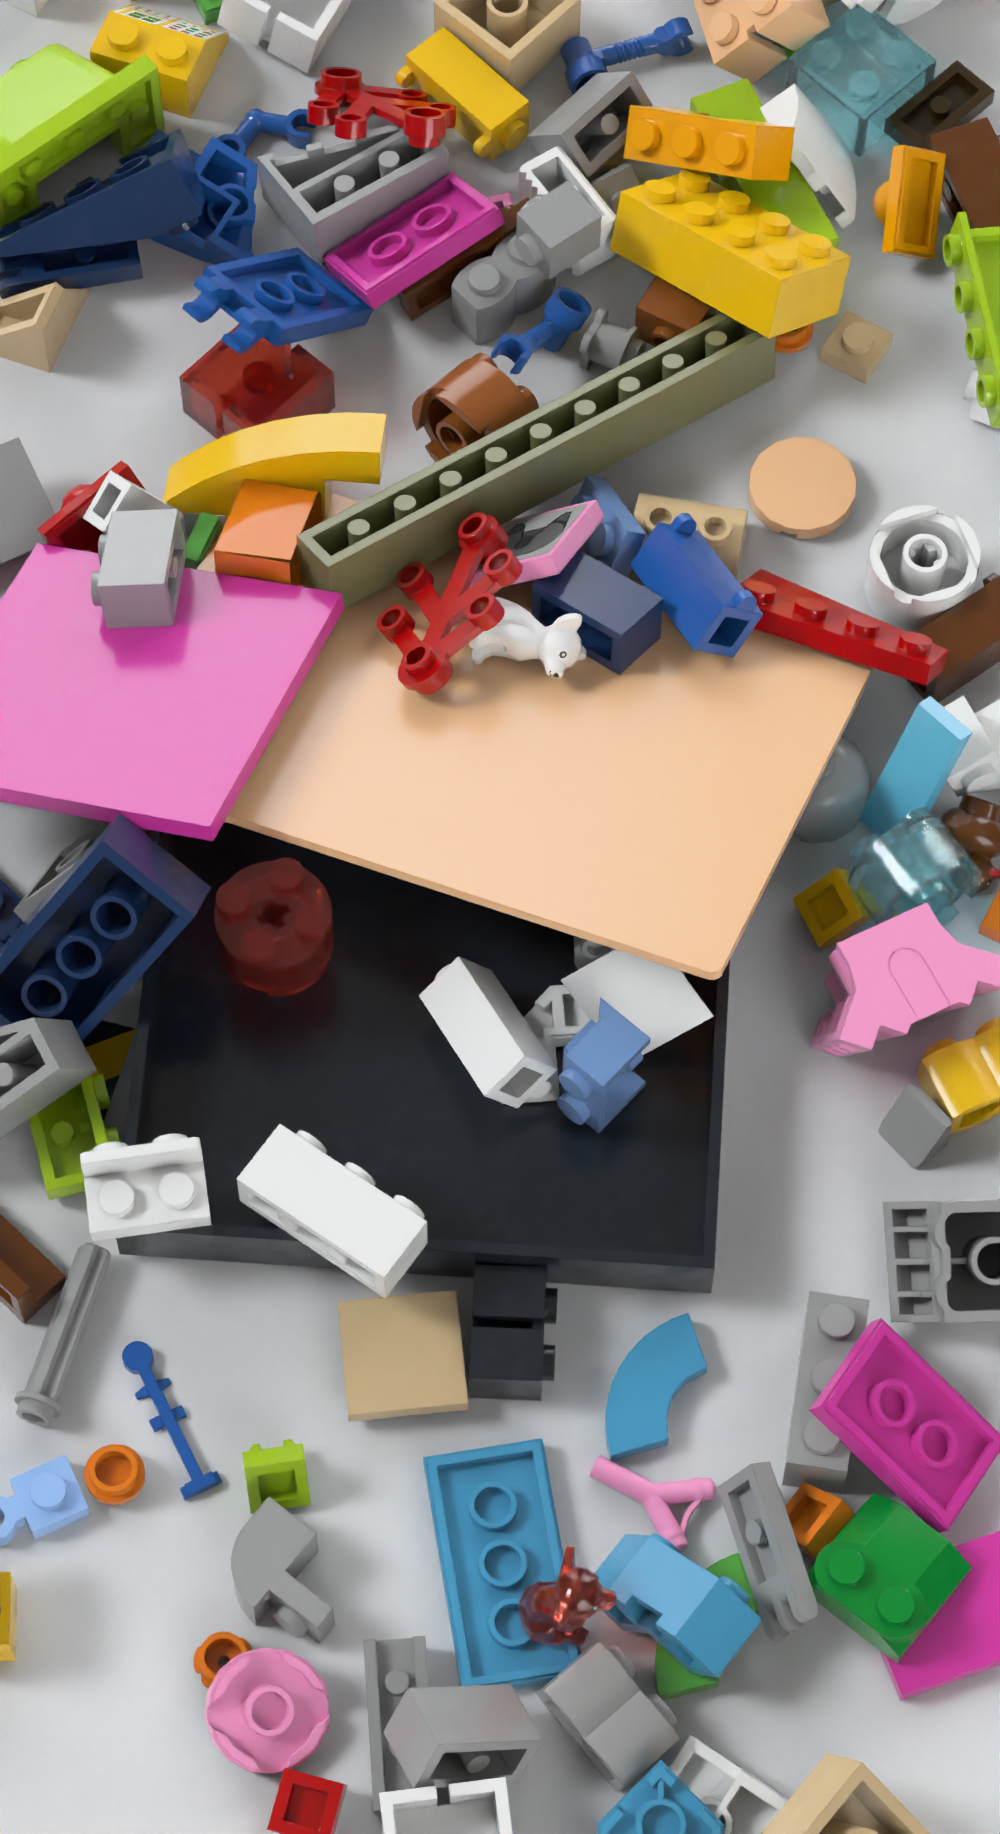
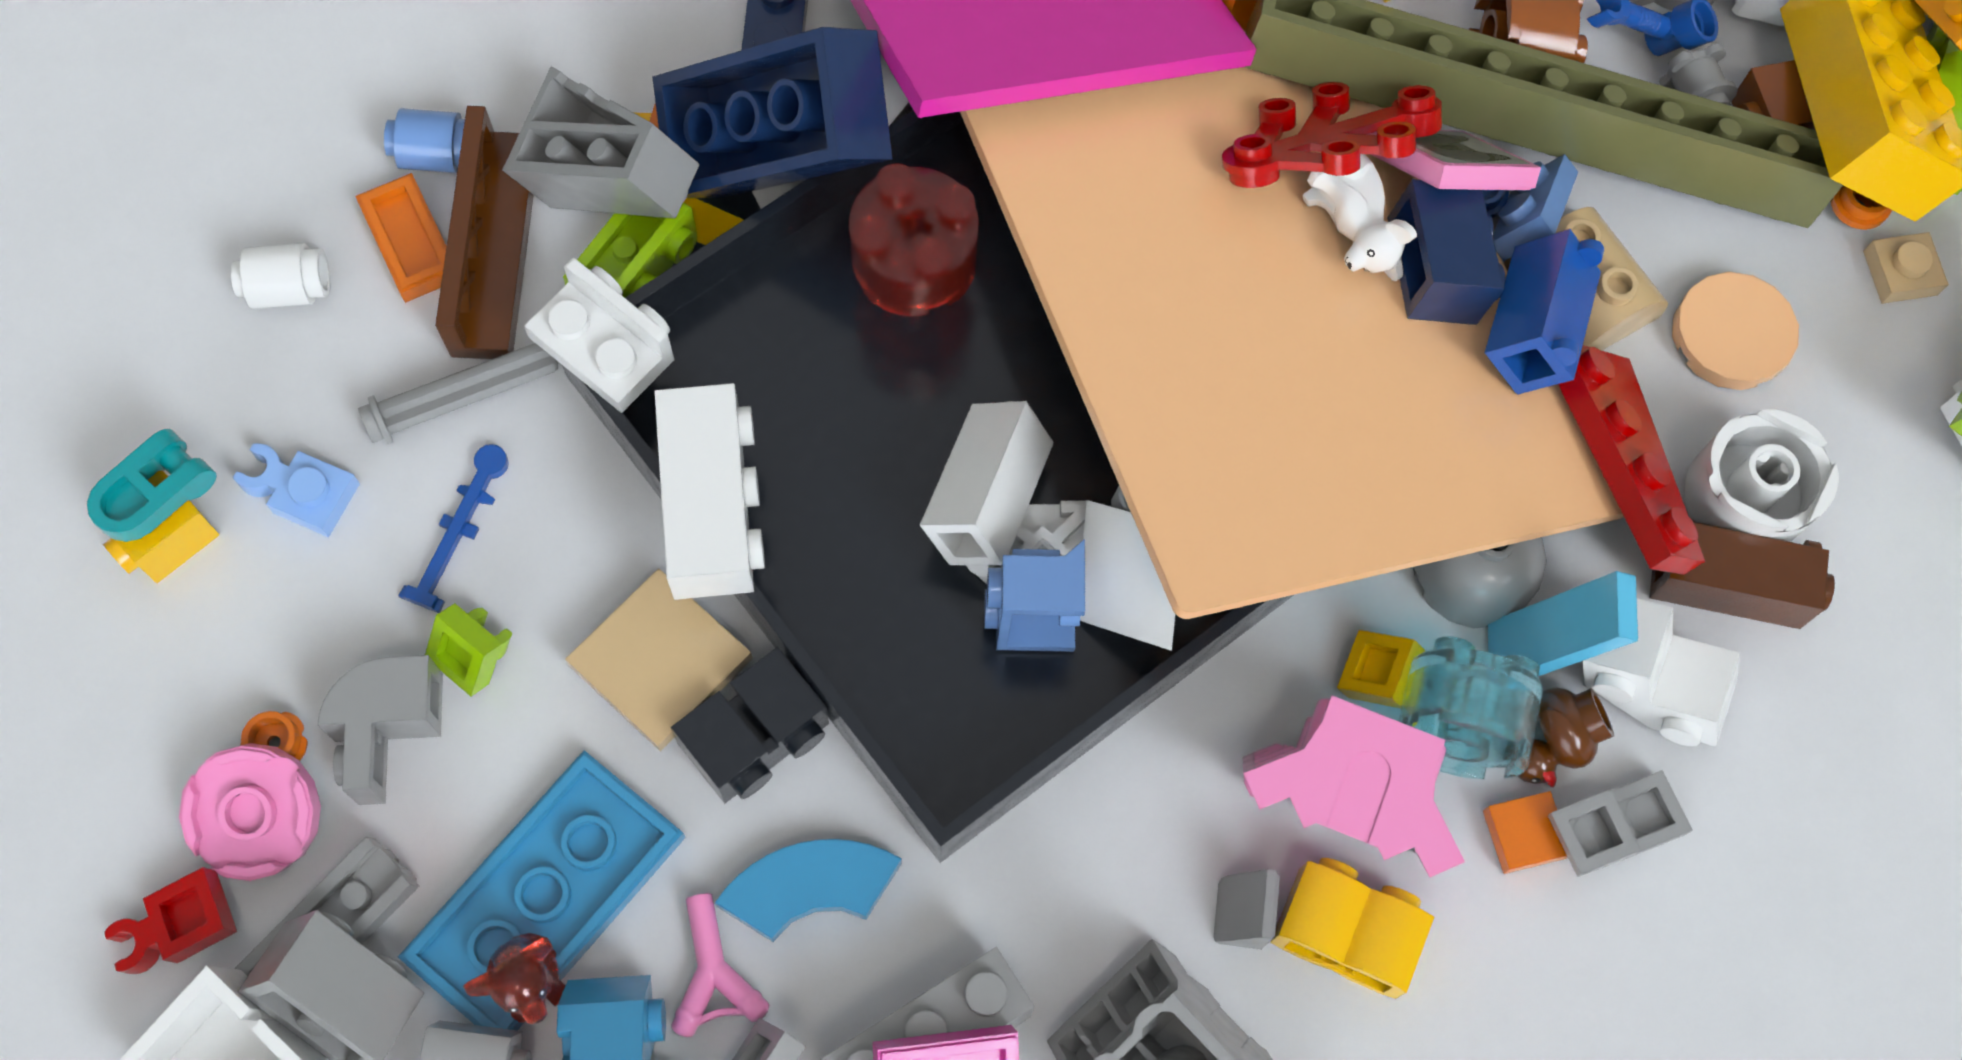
camera: 45 degrees right, 5 degrees up
(114, 1474) = (370, 525): orange plate -> none

